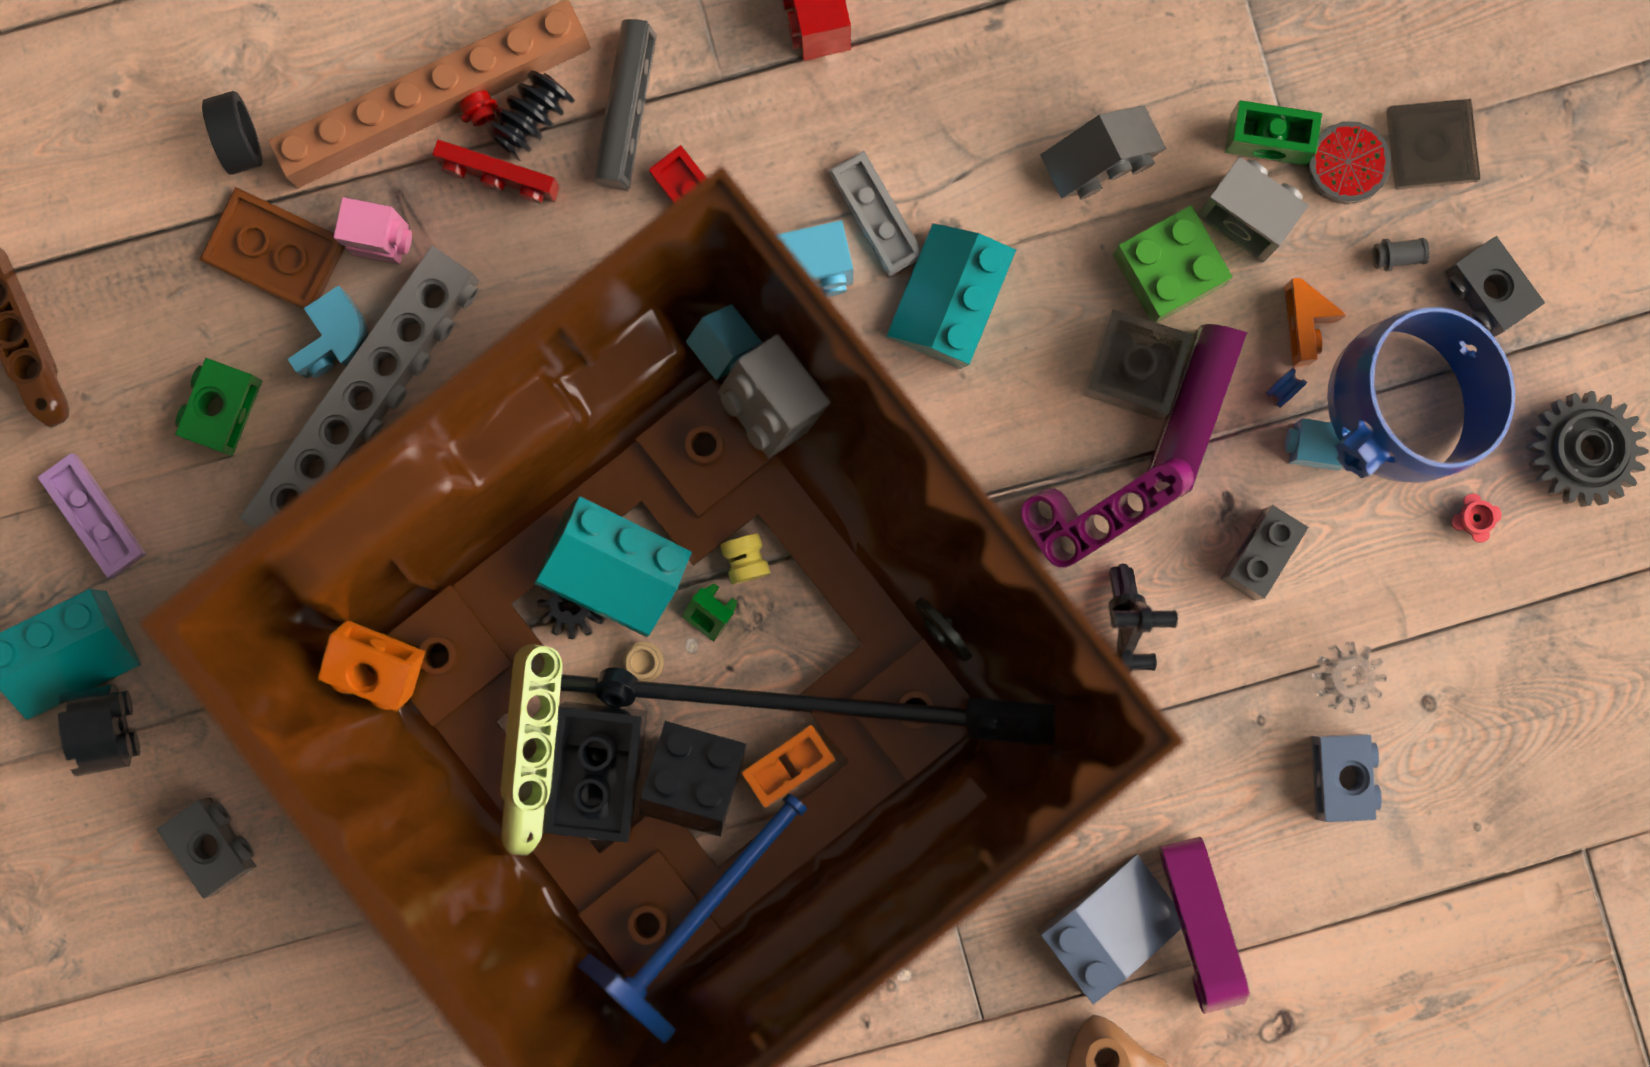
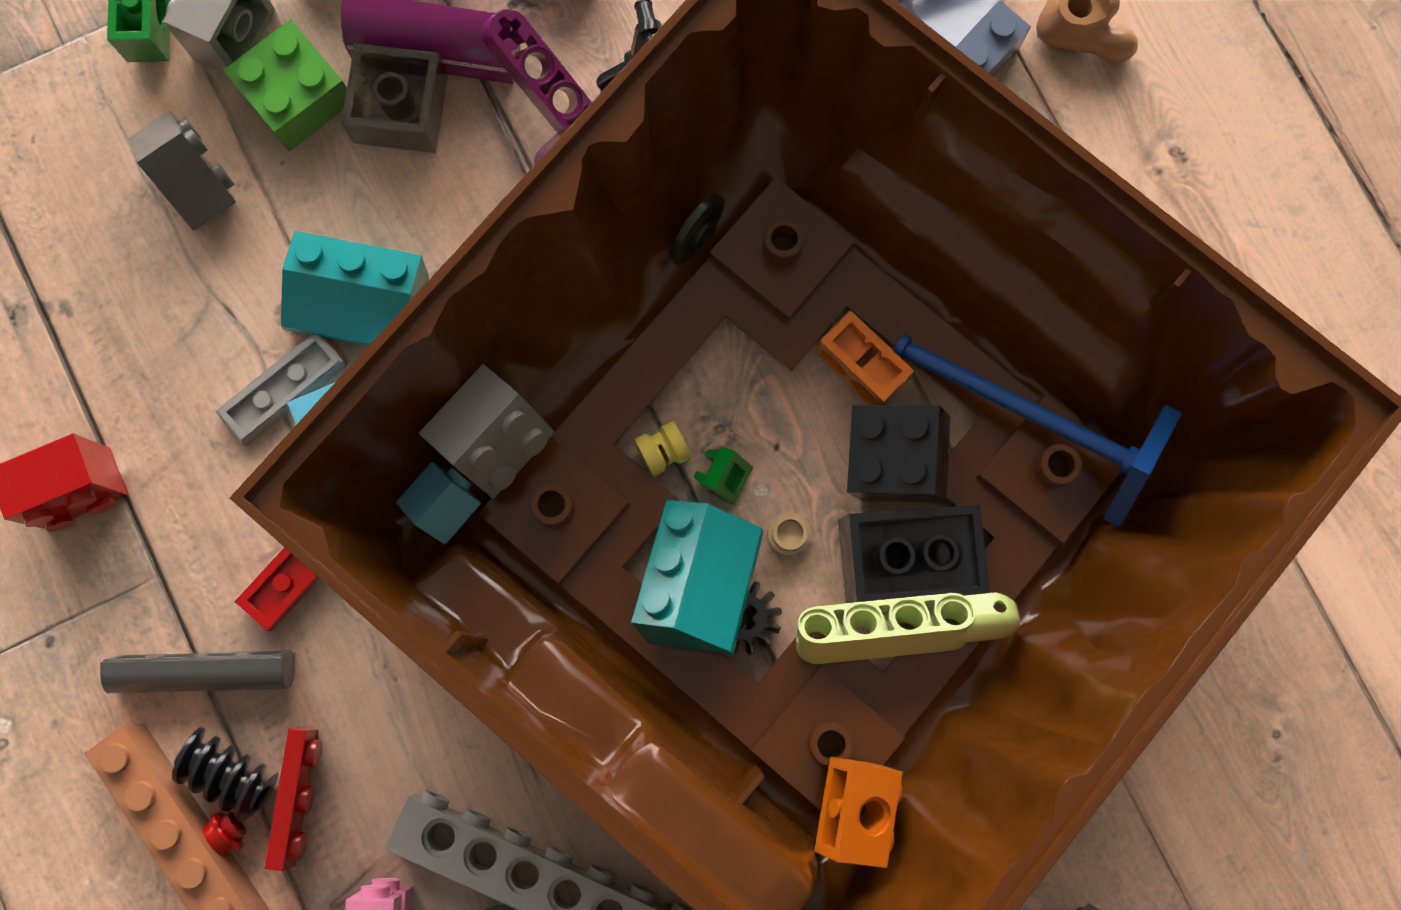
camera: 110 degrees left, 5 degrees down
(983, 717) = (782, 163): black bar -> none

